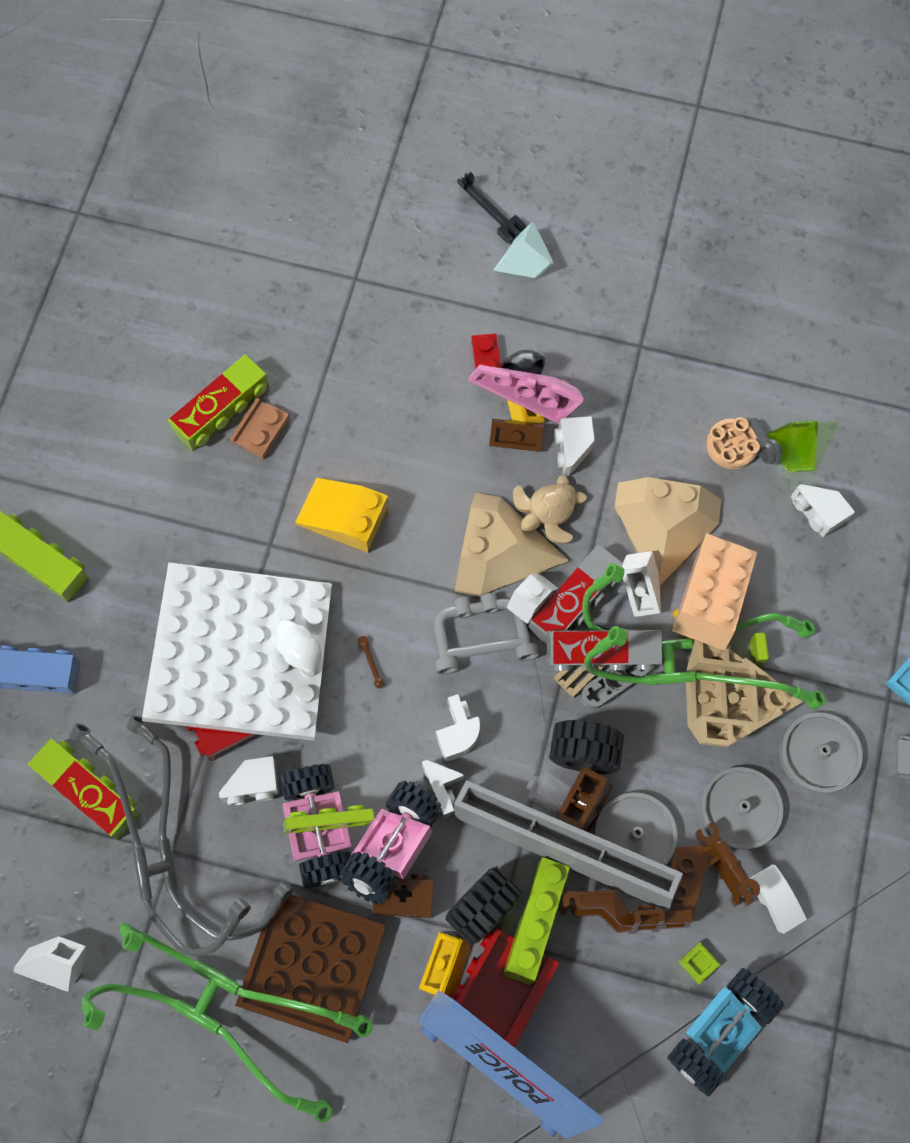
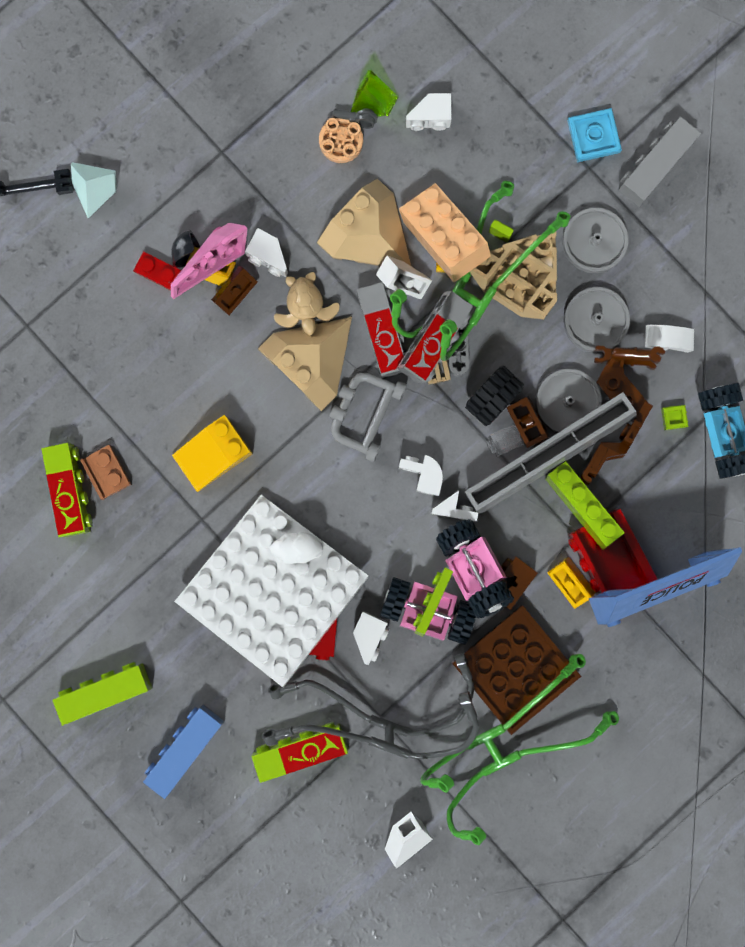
camera: 50 degrees left, 15 degrees up
(363, 642) = (317, 499): reddish brown hinge -> none
(483, 905) = (554, 534): black tyre -> none
(531, 596) = (364, 360): white slope -> none

